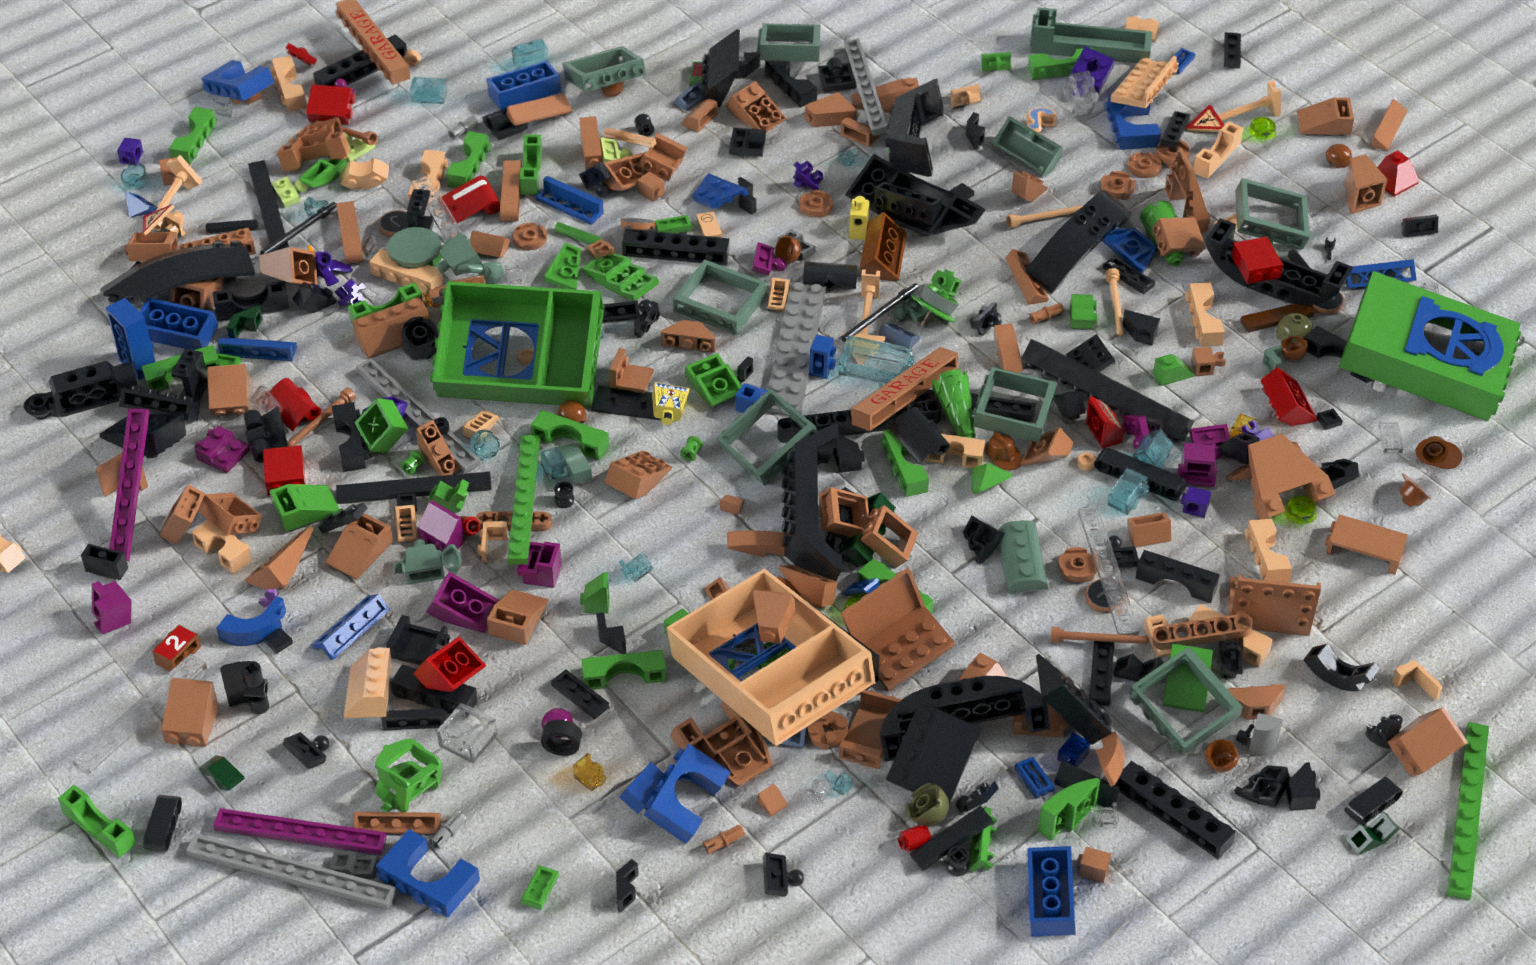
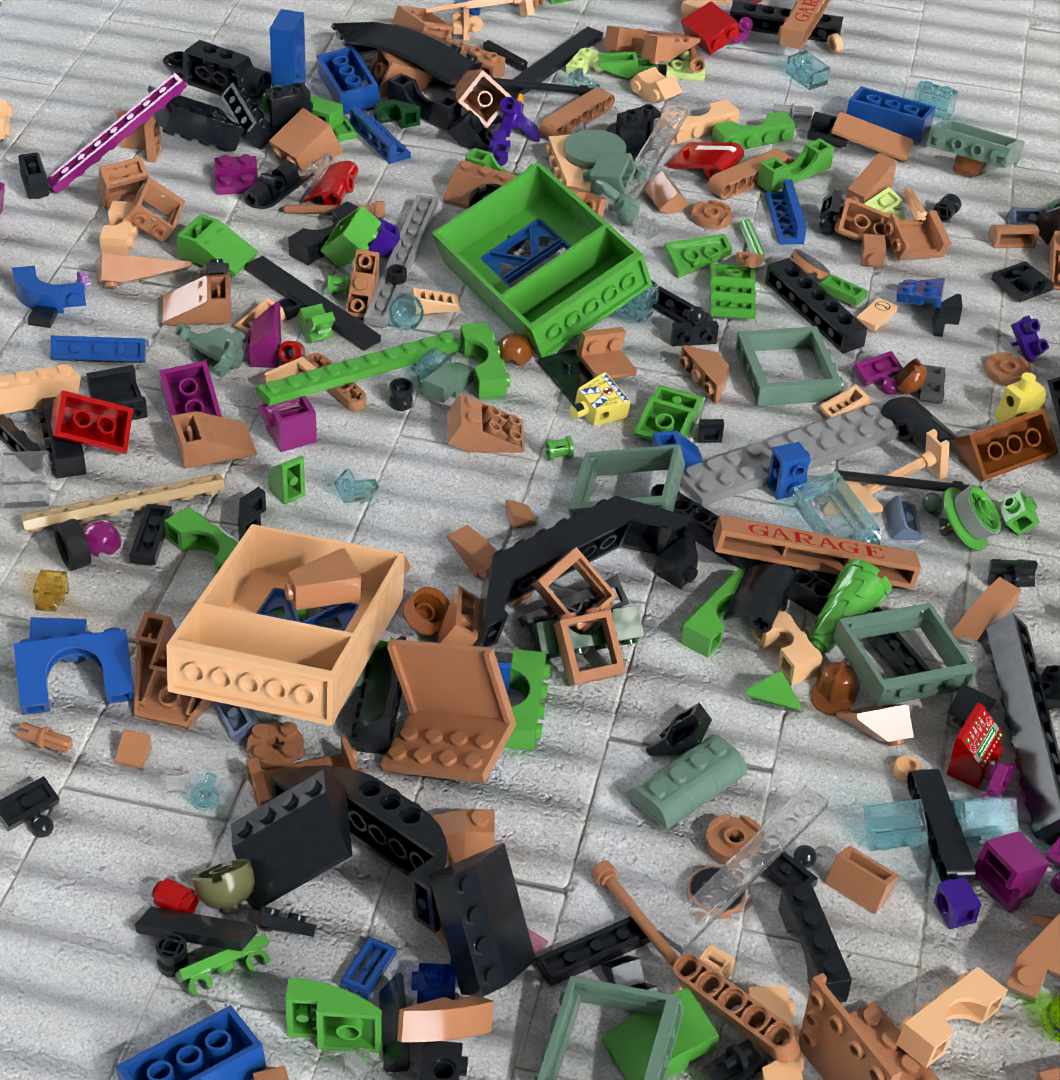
camera: 50 degrees right, 5 degrees down
(283, 467) = (249, 216): red brick -> none
(534, 694) = (114, 504): none -> tan plate

